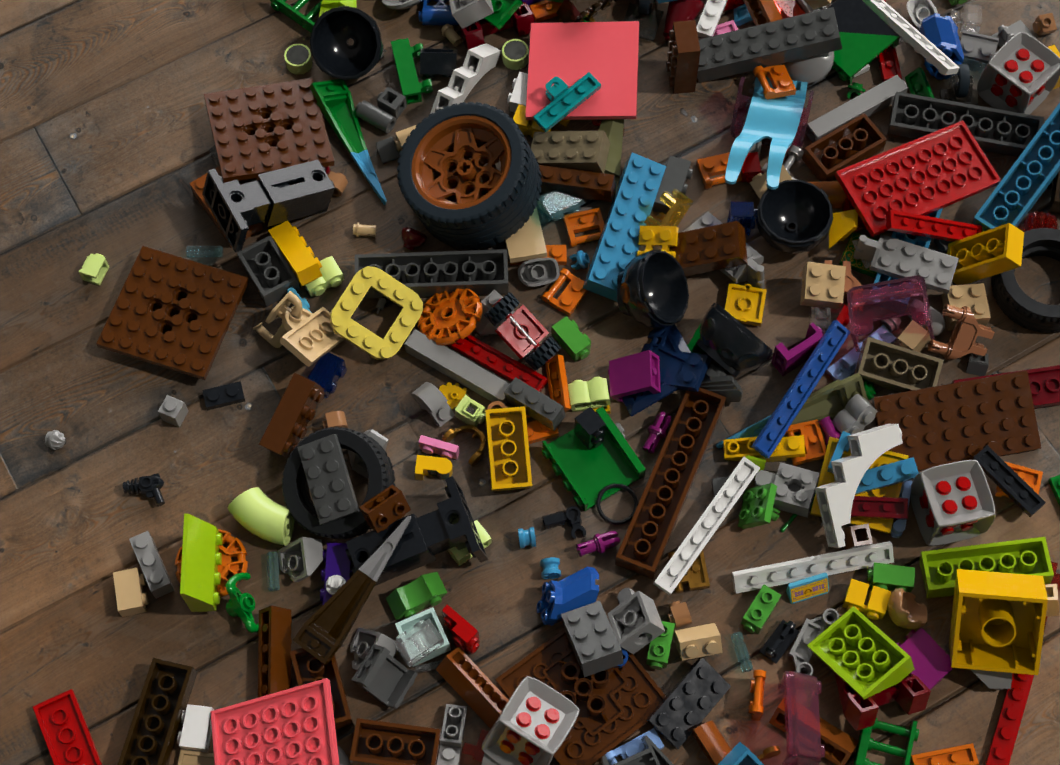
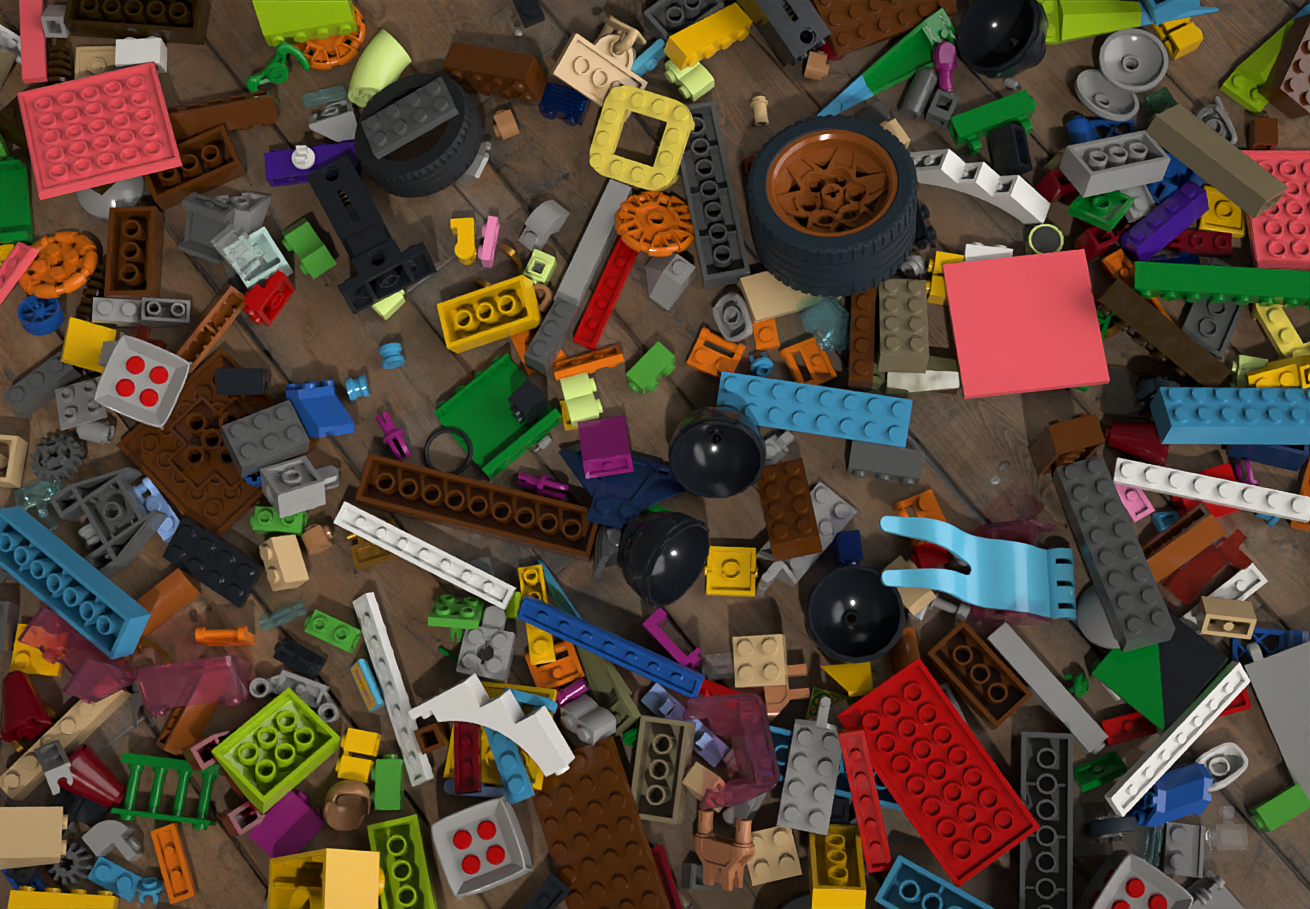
camera: 85 degrees right, 10 degrees up
(333, 621) = (251, 158): dark brown plate -> none
(355, 93) = (945, 61): none -> magenta arm
(385, 508) = (379, 183): reddish brown brick -> none
(453, 393) = (561, 246): yellow piece -> none
(522, 331) = (640, 305): plate -> none
(534, 657) = (242, 381): none -> black hinge
(564, 99) = (970, 304): teal plate -> none
(571, 516) = (425, 404): black bar -> none
(658, 236) = (794, 447): yellow plate -> none
(678, 204) = (833, 462): clear yellow panel -> none
(779, 79) = (1065, 579): orange plate -> none

